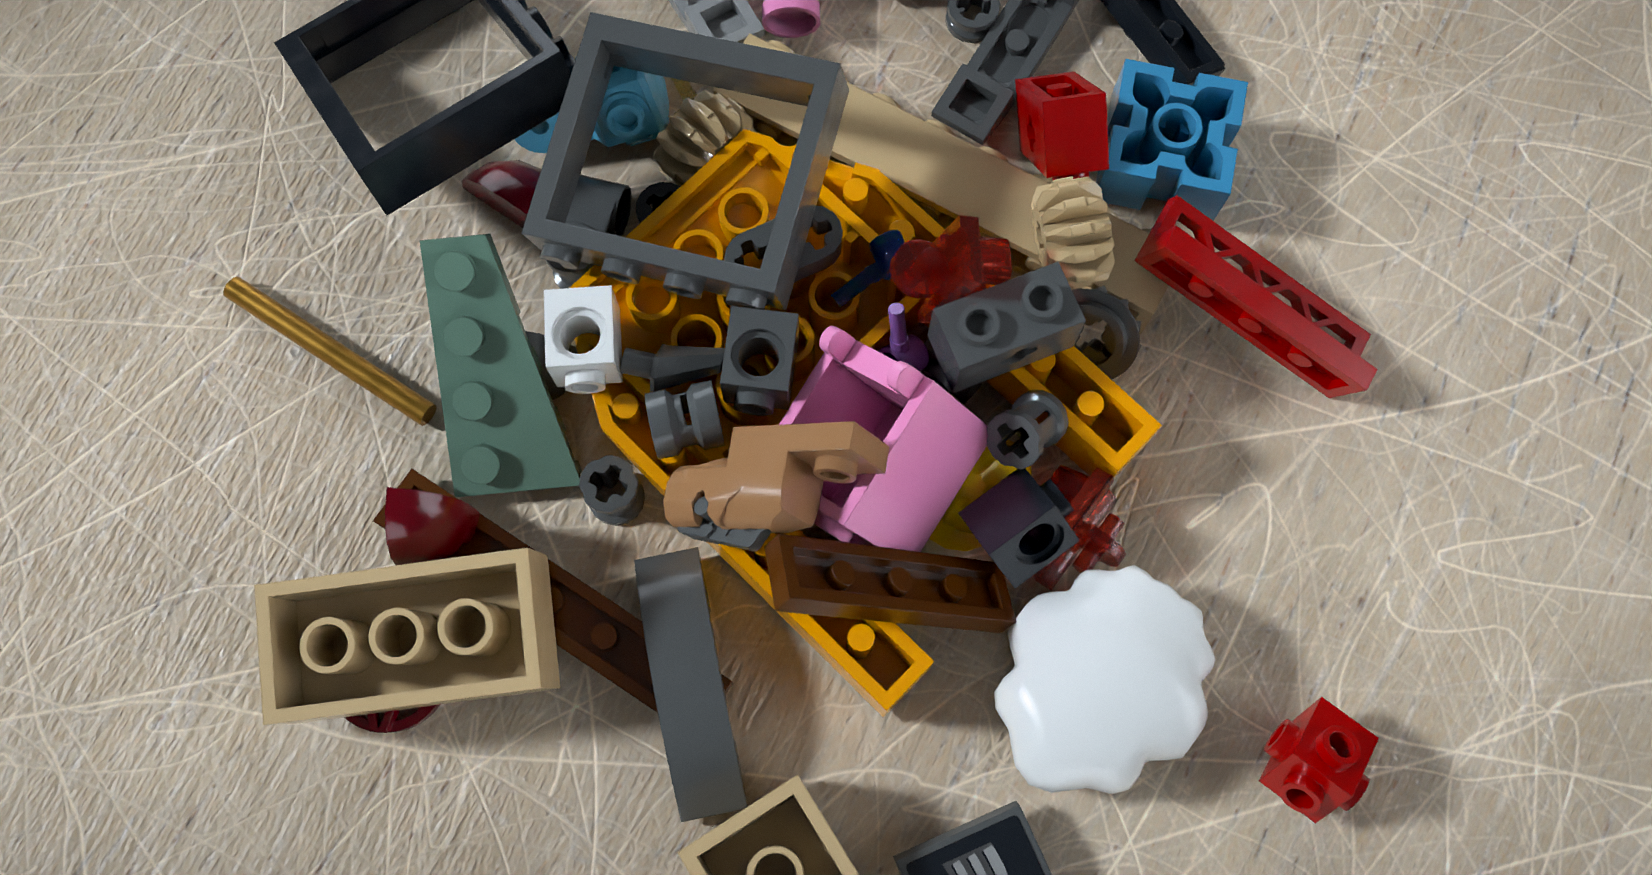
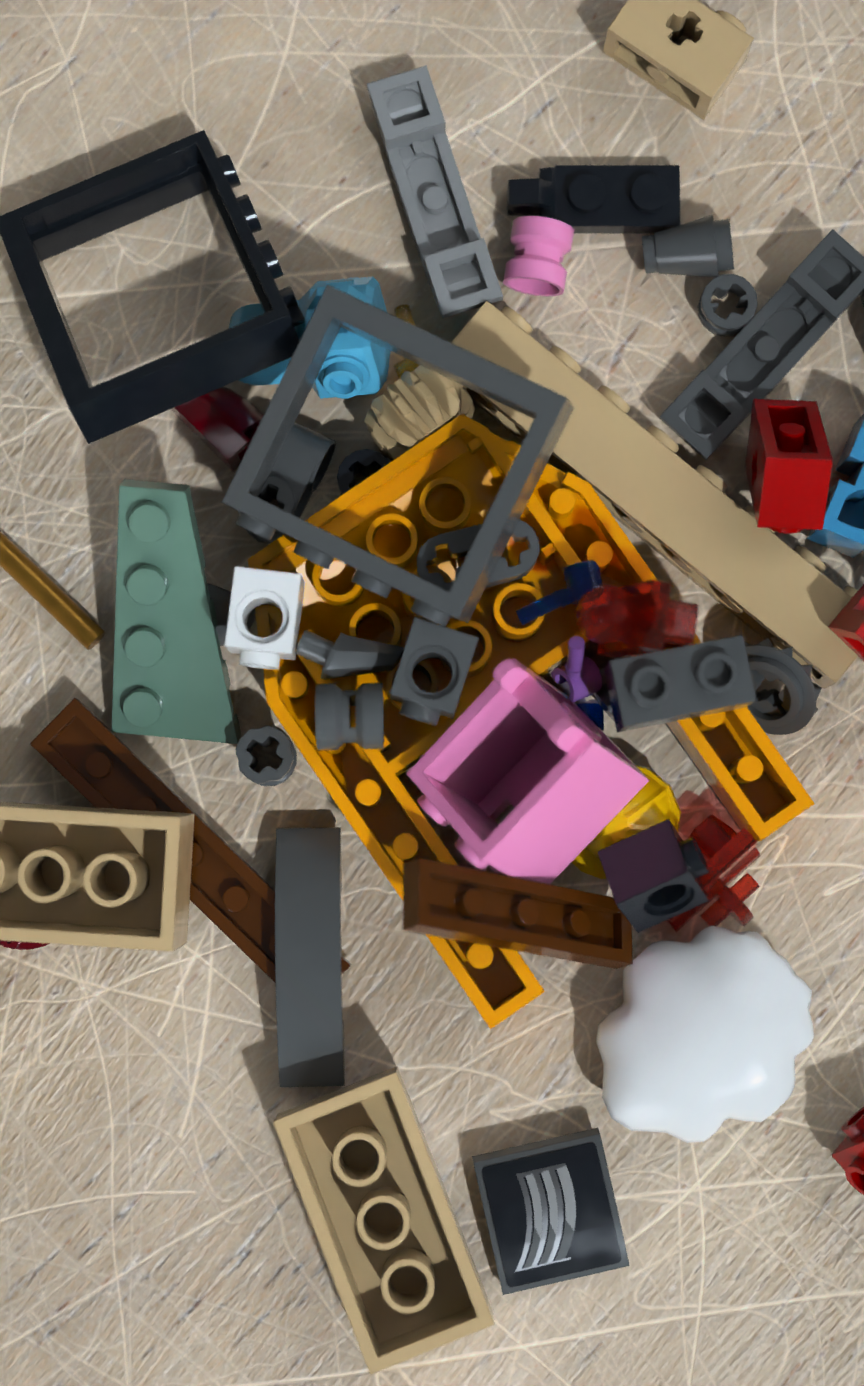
camera: 10 degrees right, 10 degrees up
(426, 525) = (83, 770): dark red brick -> none
(769, 481) = (415, 804): medium nougat plate -> none
(1023, 423) = (682, 767): dark grey bush -> none
(1073, 229) = (769, 594): tan gear -> none

